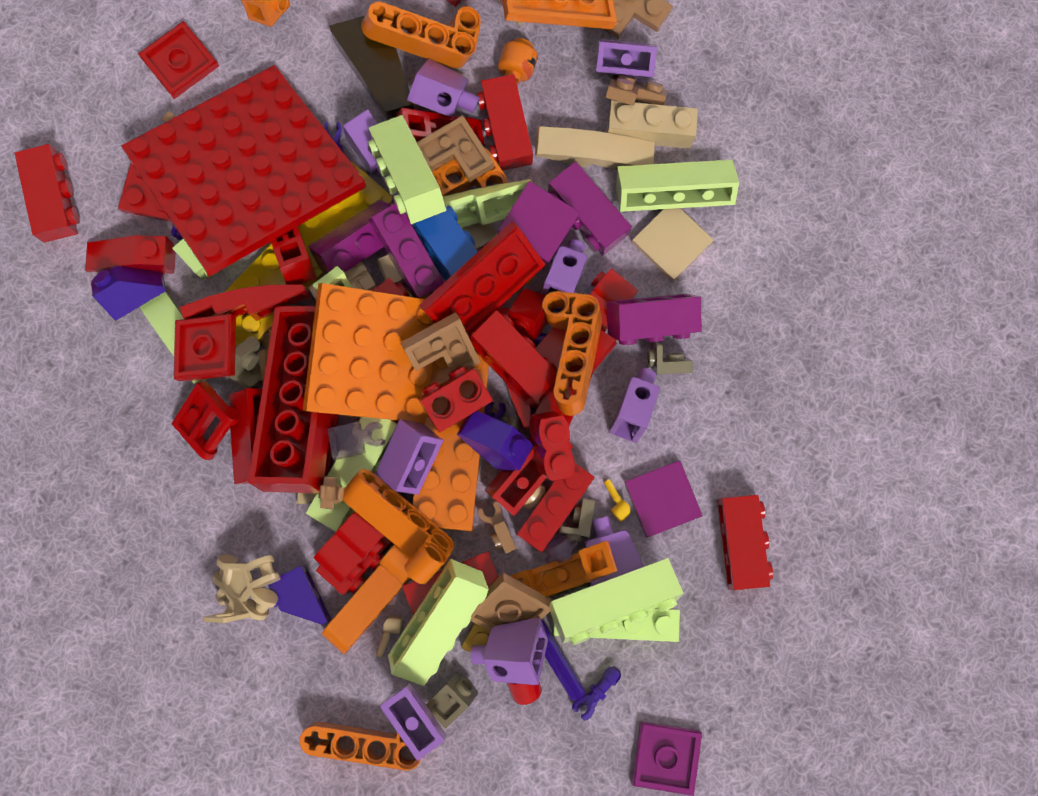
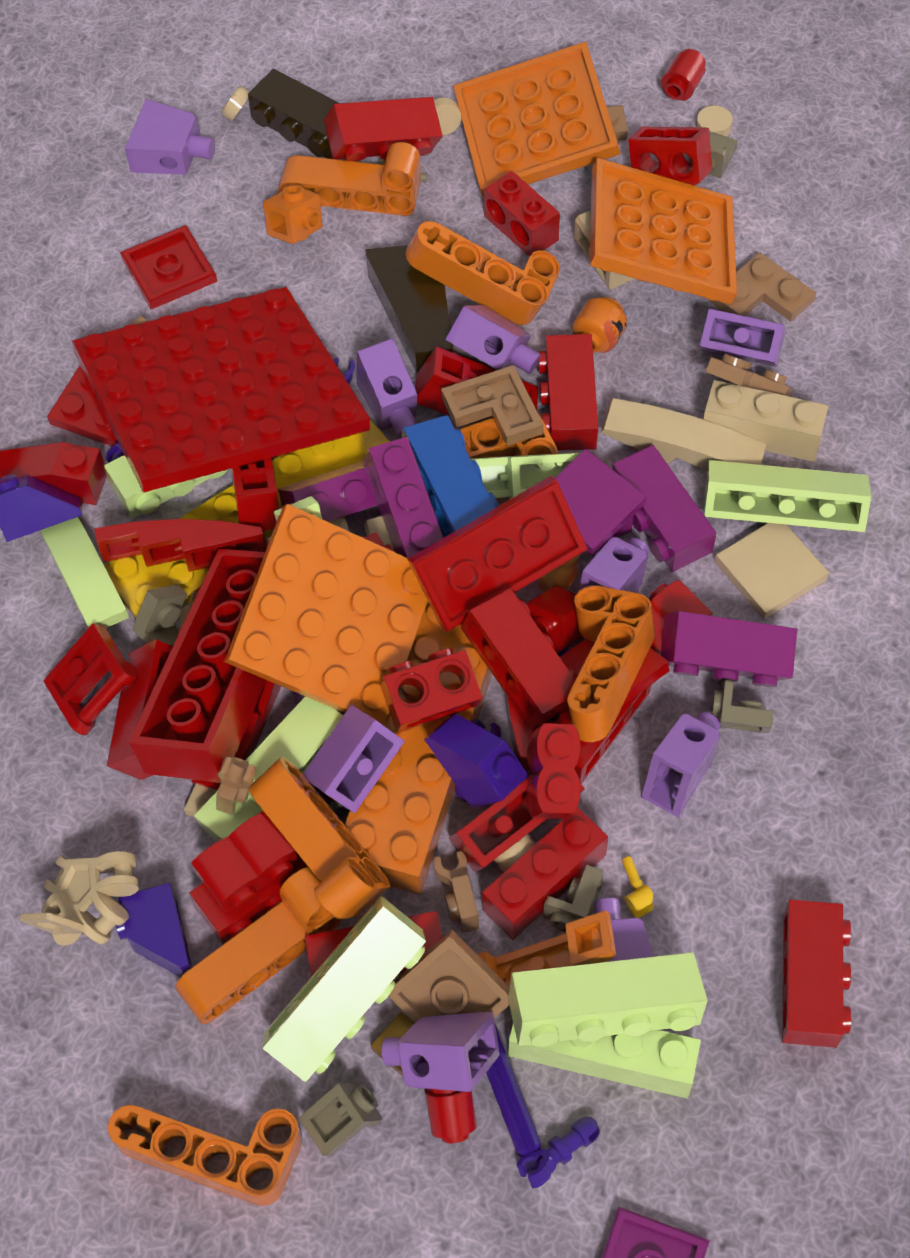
camera: 20 degrees right, 20 degrees down
(205, 347) = (114, 582): red tile -> none
(350, 439) = (278, 723): plate -> none
(392, 625) = (276, 997): tan hand -> none
(406, 170) = (425, 402): yellowish green brick -> none
(413, 721) = (279, 1110): medium lavender brick -> none
(444, 340) = (427, 608): medium nougat plate -> none
(560, 549) = (540, 926): clear purple plate -> none
(663, 499) = (704, 897): magenta tile -> none

